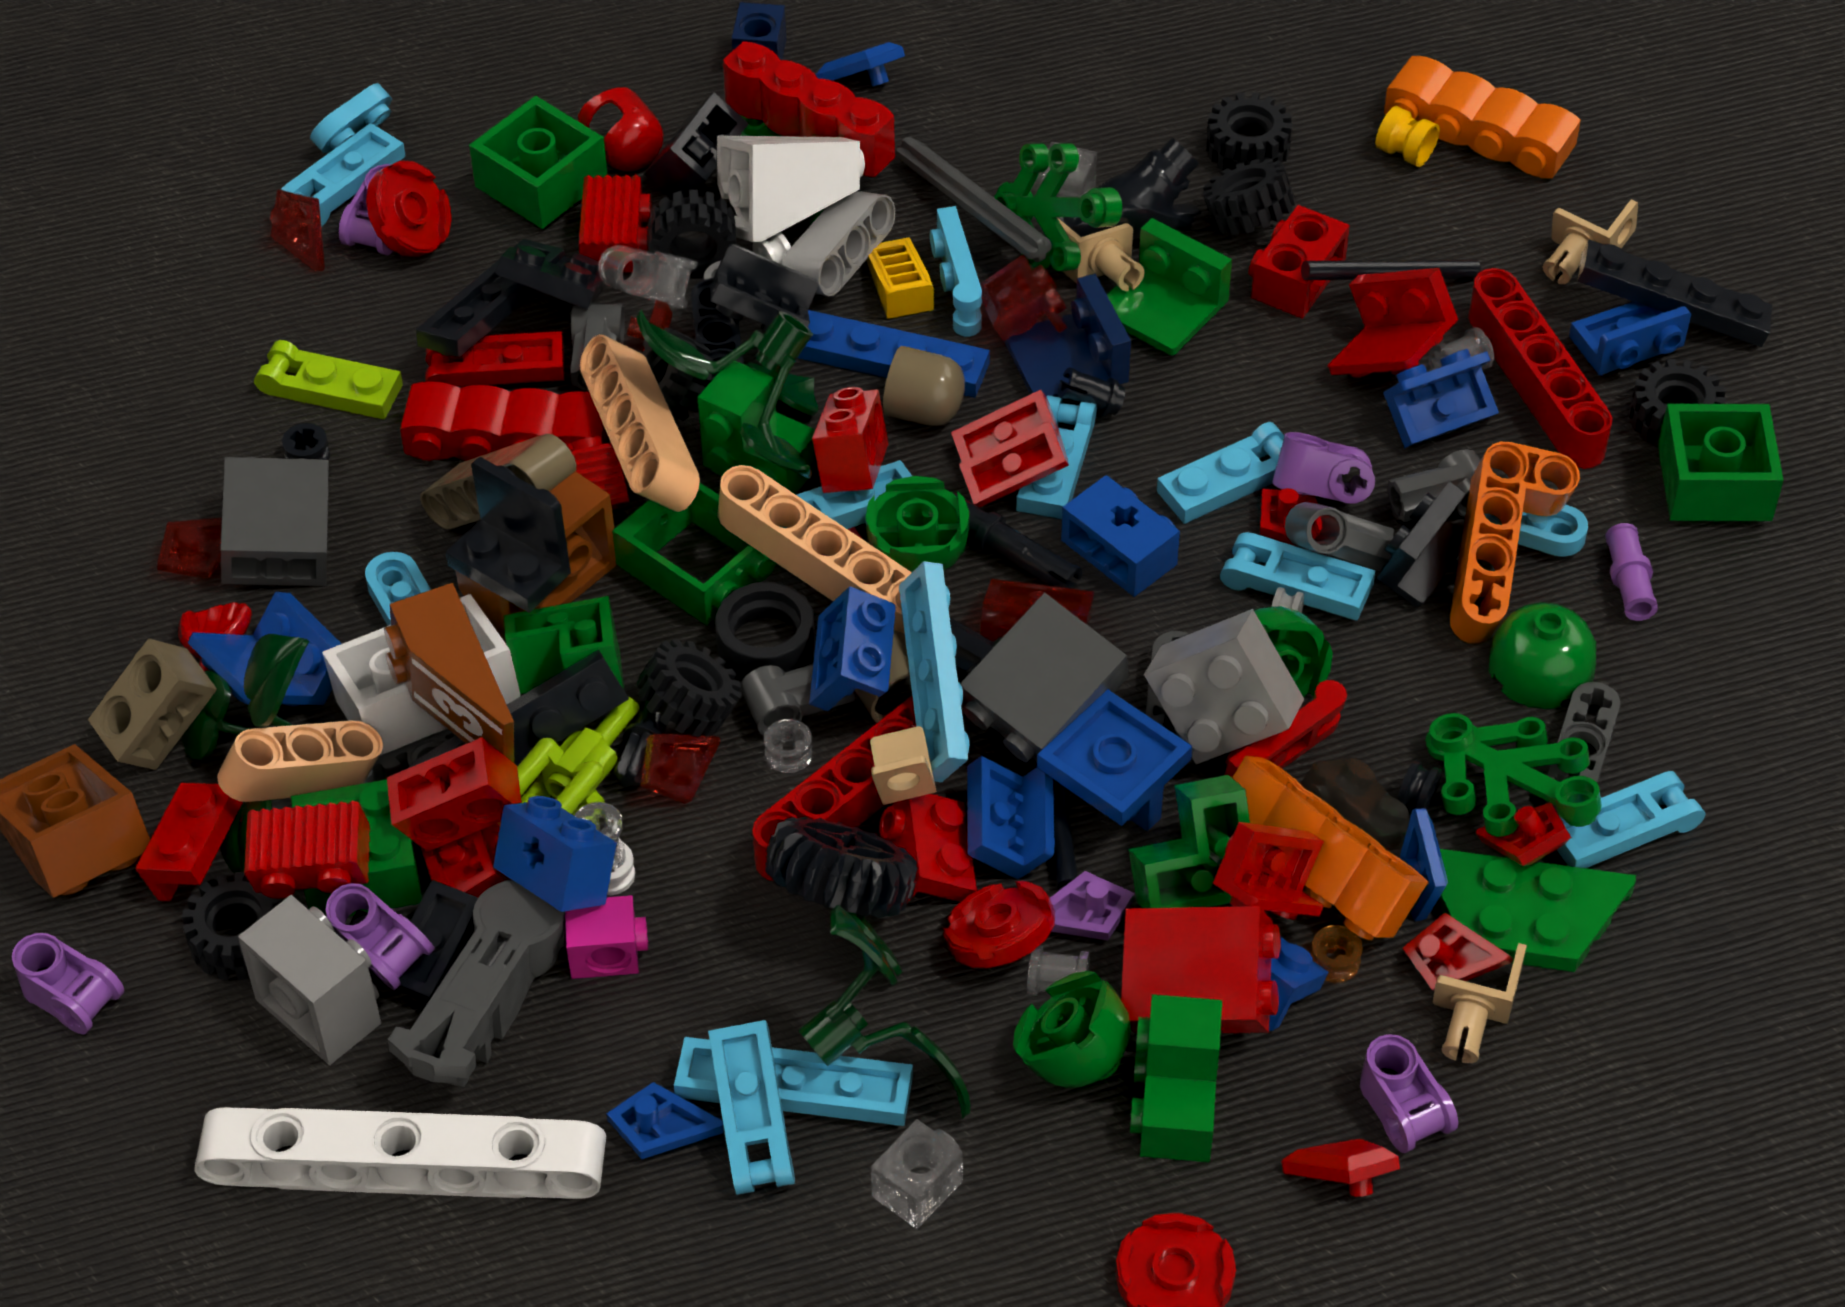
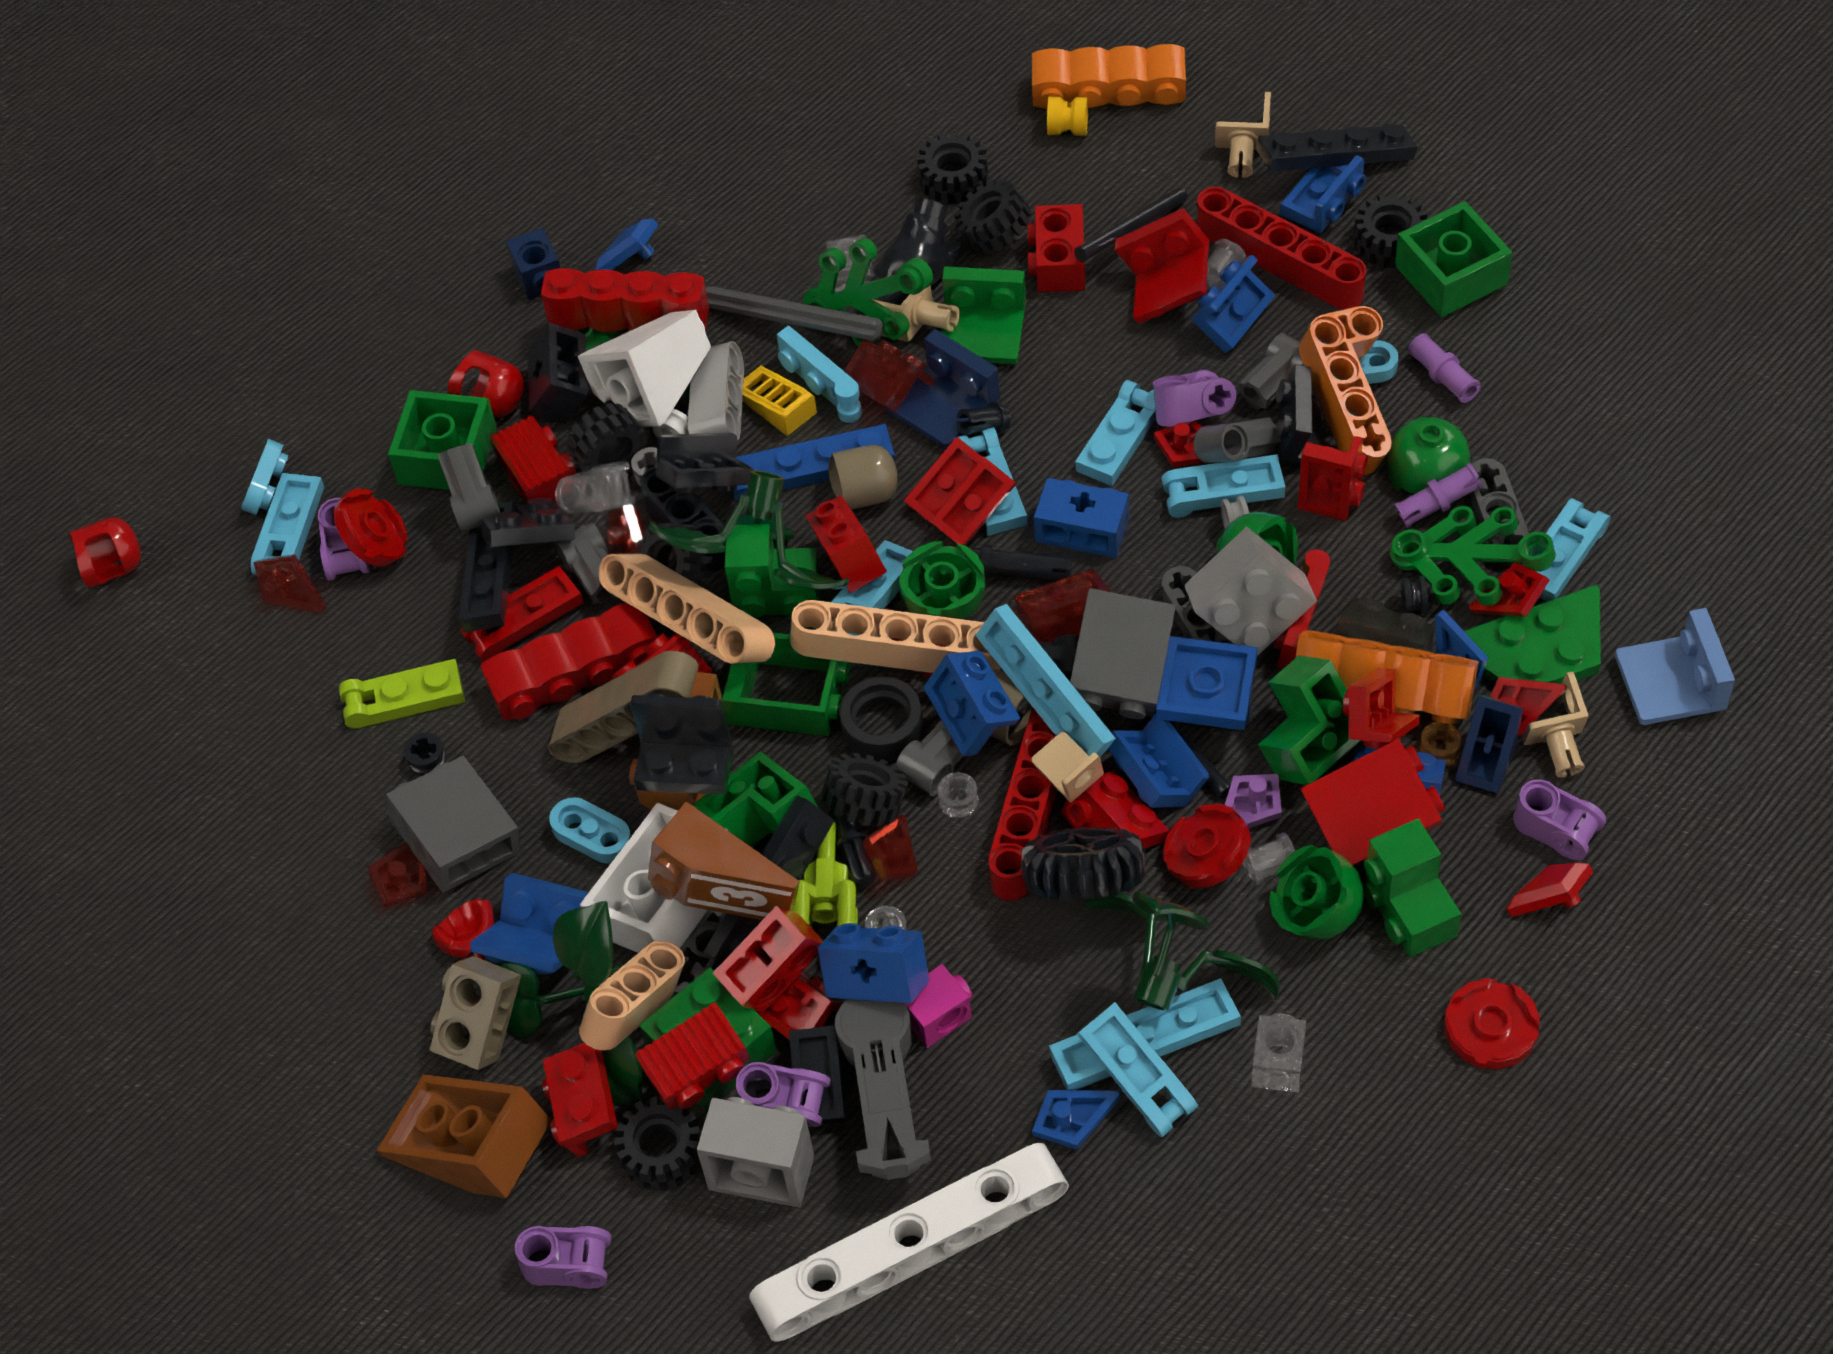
camera: 25 degrees left, 5 degrees up
(162, 117) = (101, 546): none -> red helmet
(520, 208) = (471, 495): none -> dark grey piece
(1386, 978) = (1490, 744): none -> dark blue slope
(1411, 622) = (1331, 479): none -> red bracket
(1522, 696) = (1438, 495): none -> medium lavender pin
(1653, 1013) = (1678, 674): none -> medium blue bracket

